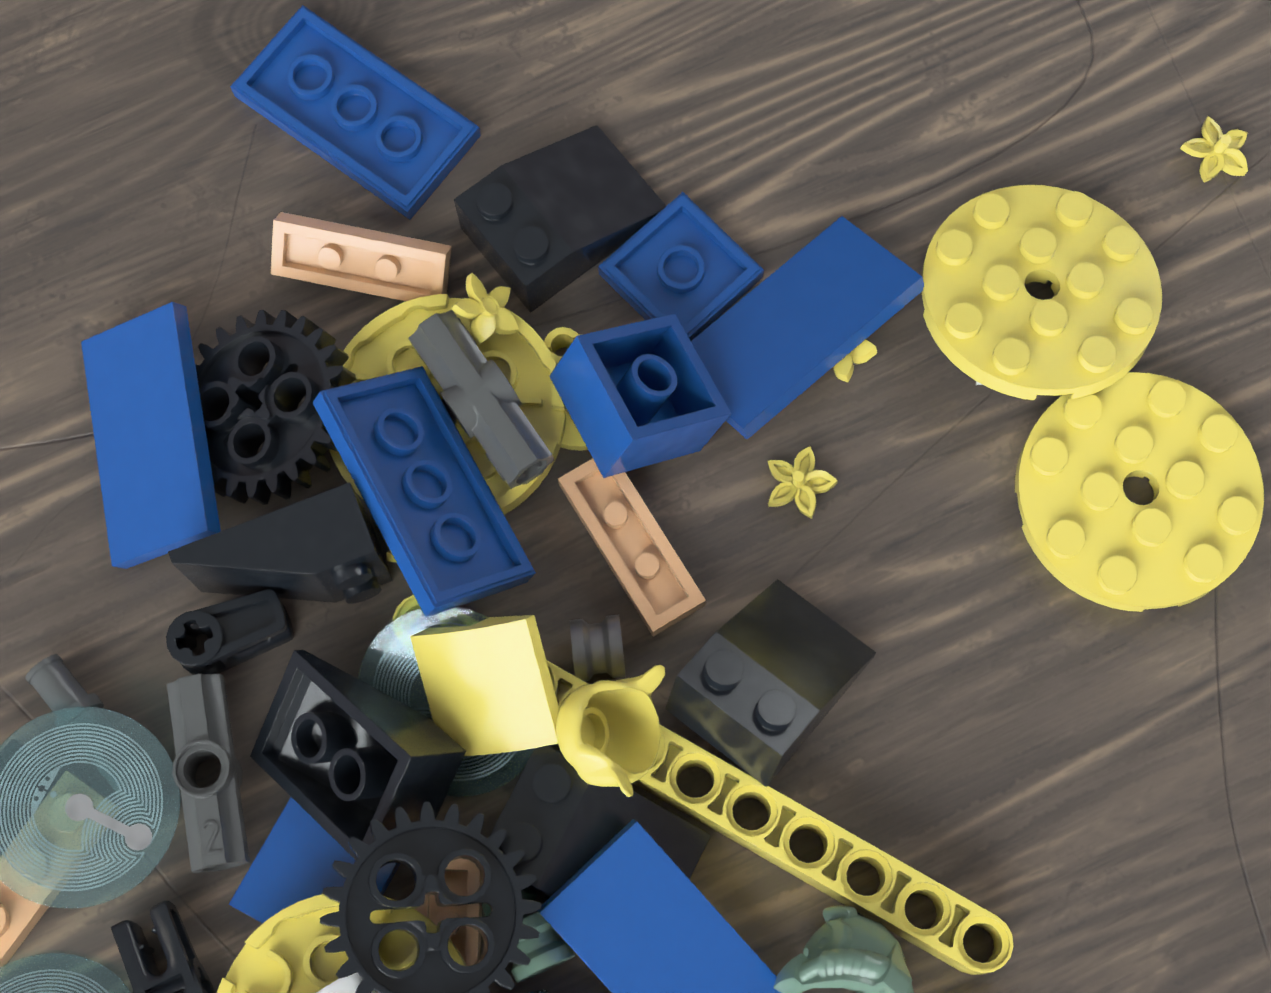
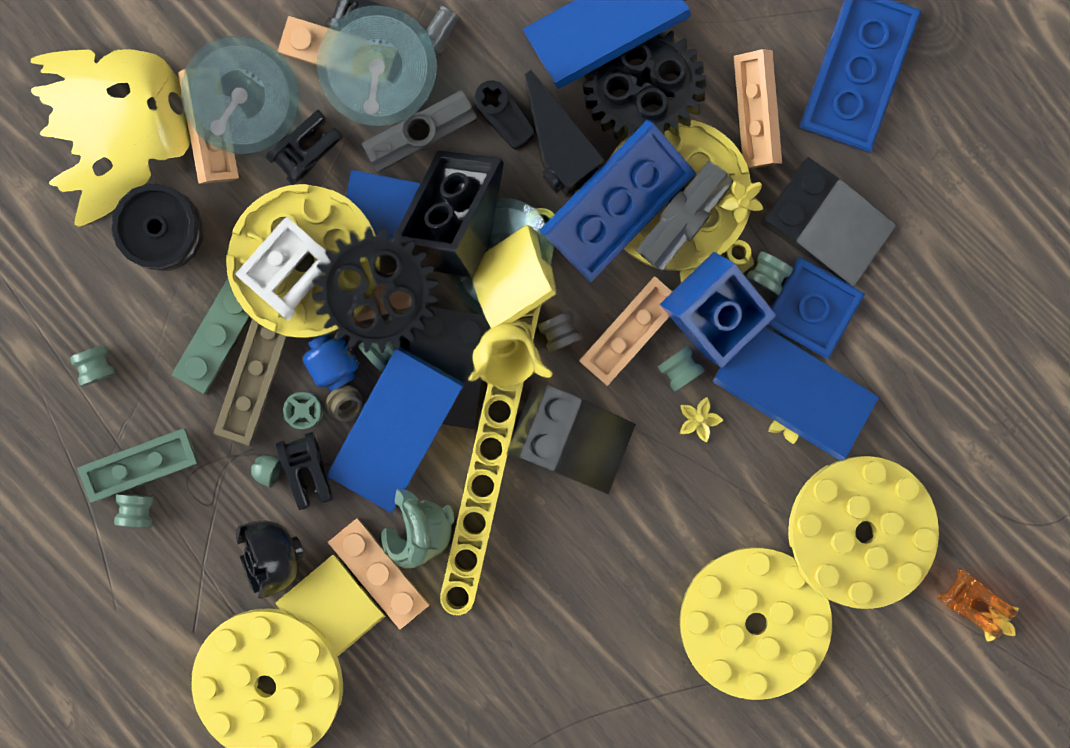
camera: 65 degrees right, 15 degrees up
(607, 306) = (769, 273): none -> sand green wheel
(712, 482) = (681, 368): none -> sand green wheel
(1194, 180) = (965, 594): none -> clear orange piece

